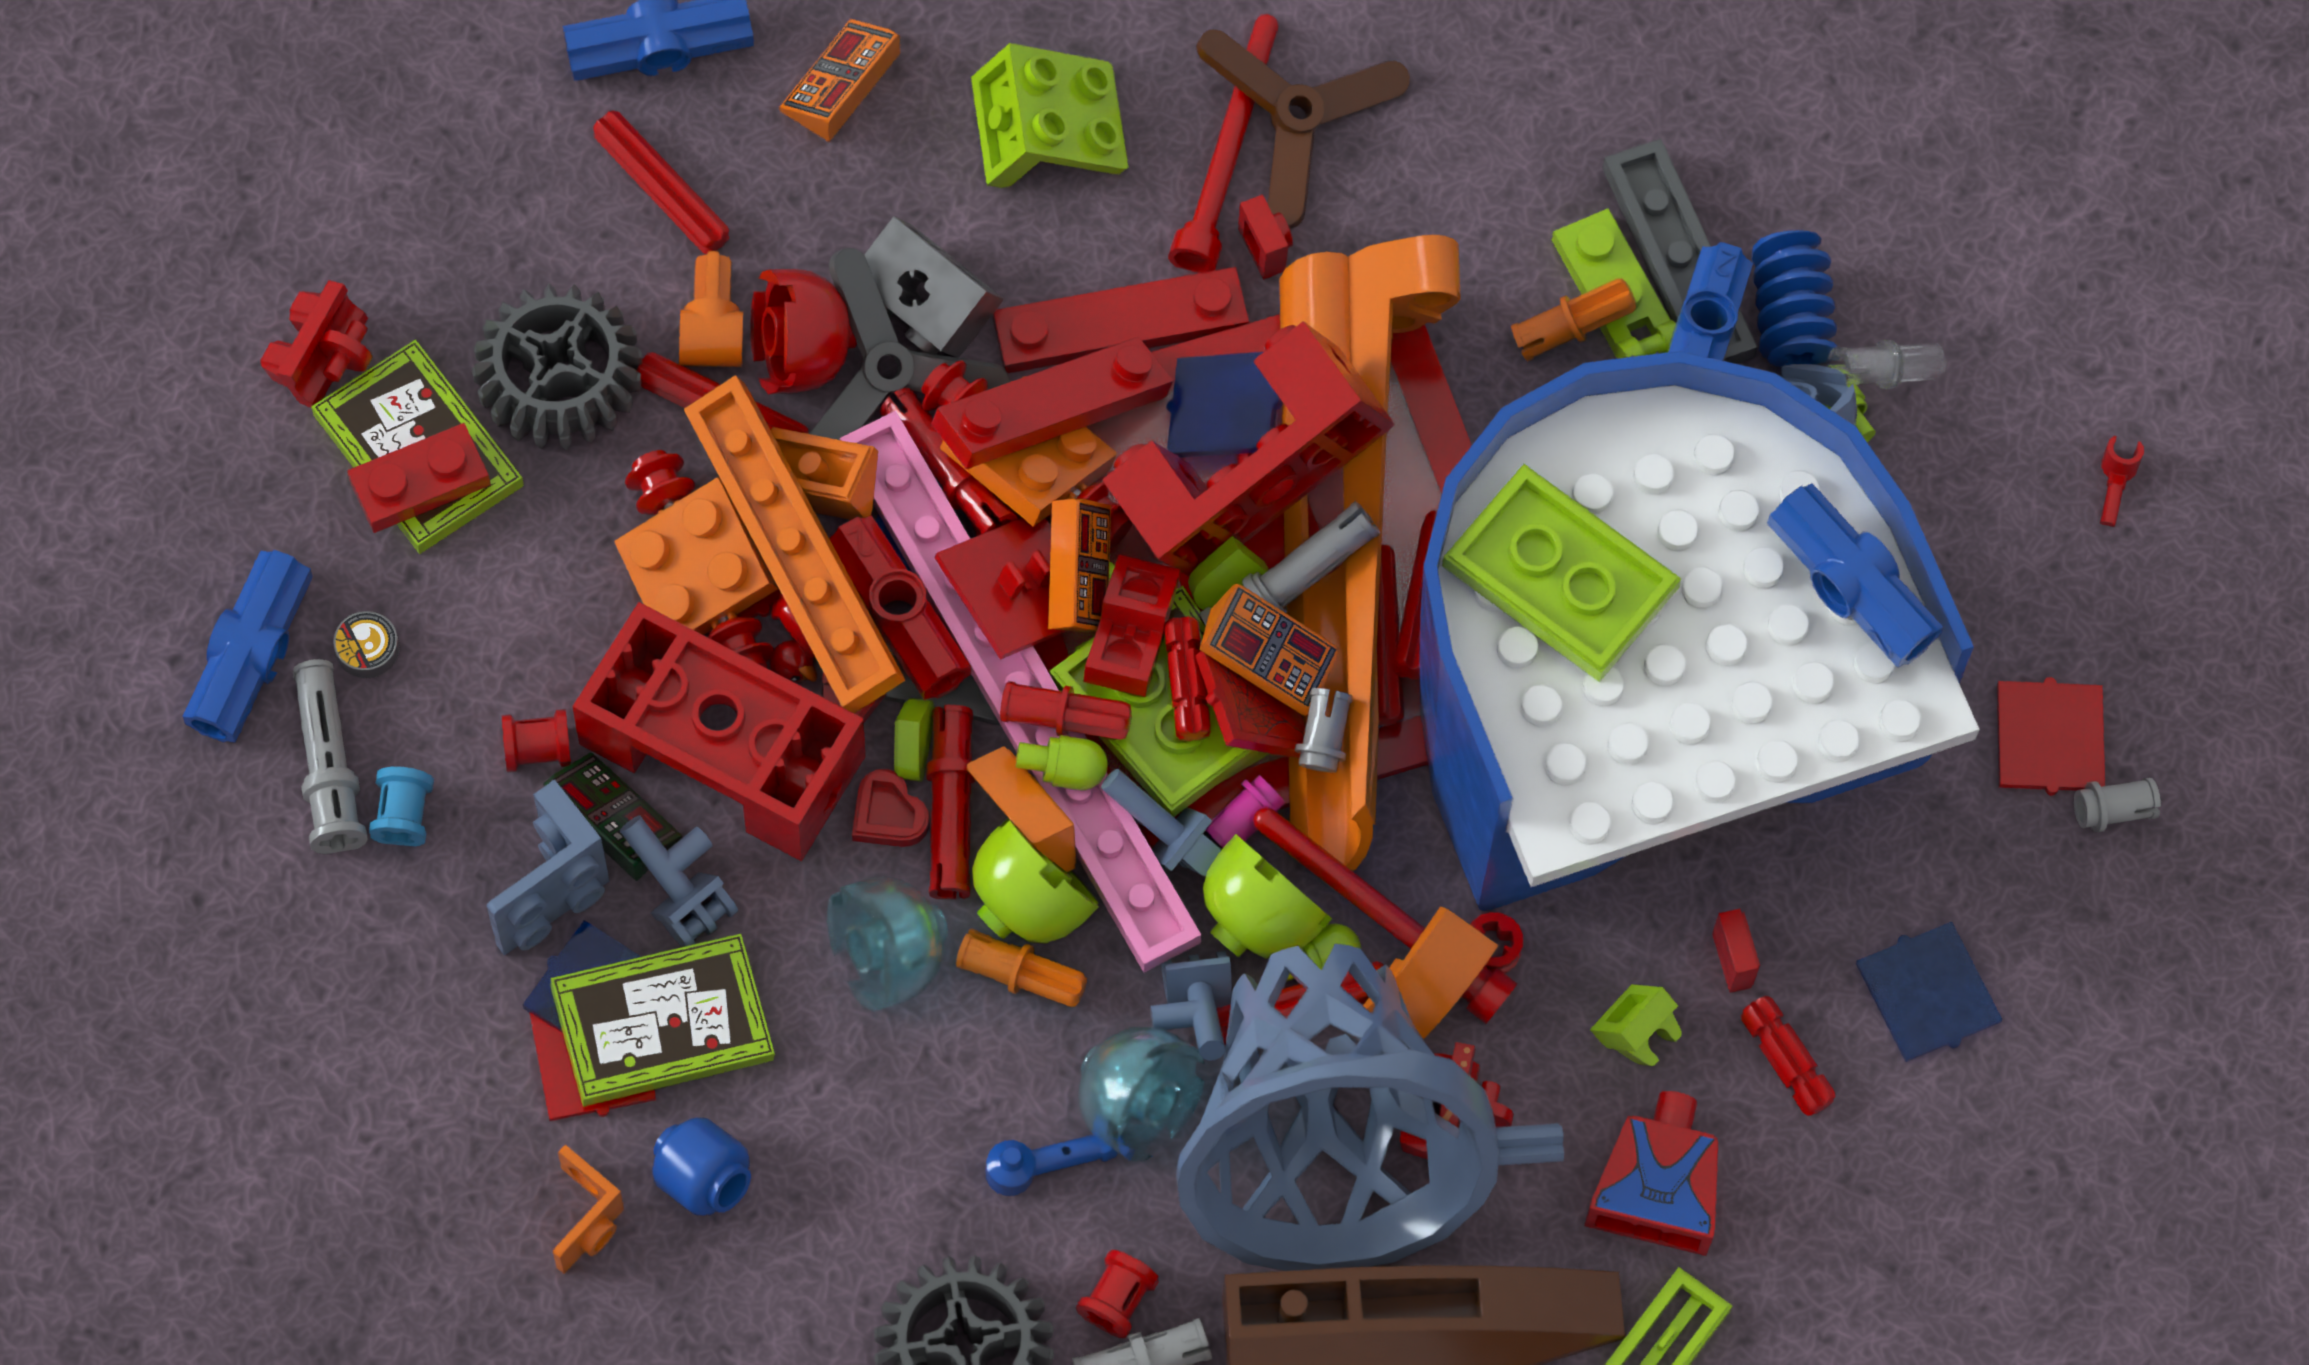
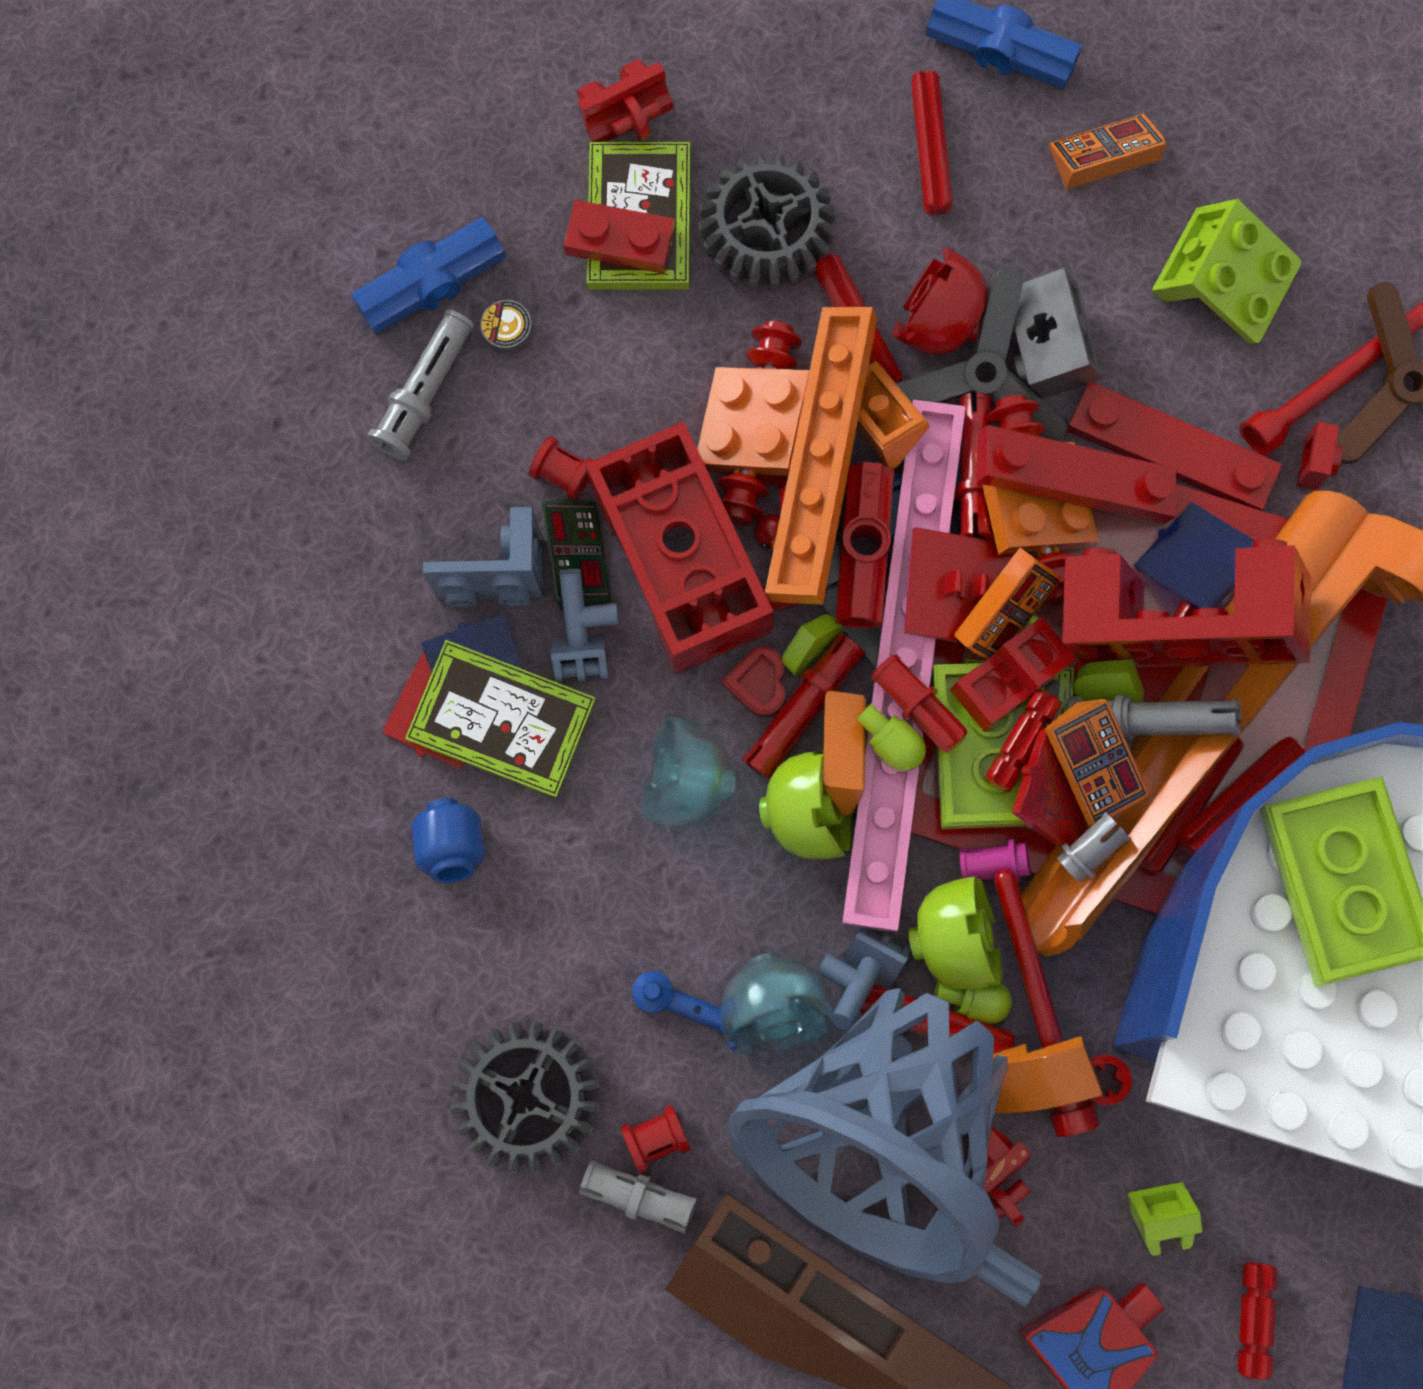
camera: 45 degrees right, 10 degrees up
(401, 806) = (443, 452): dark azure bush -> none
(597, 1225) = (351, 831): orange bracket -> none
(711, 323) = (891, 261): orange axle -> none
(1020, 968) = (763, 857): orange axle -> none
(1179, 840) = (935, 848): sand blue arm -> none
(1736, 950) = (1276, 1217): red tile -> none

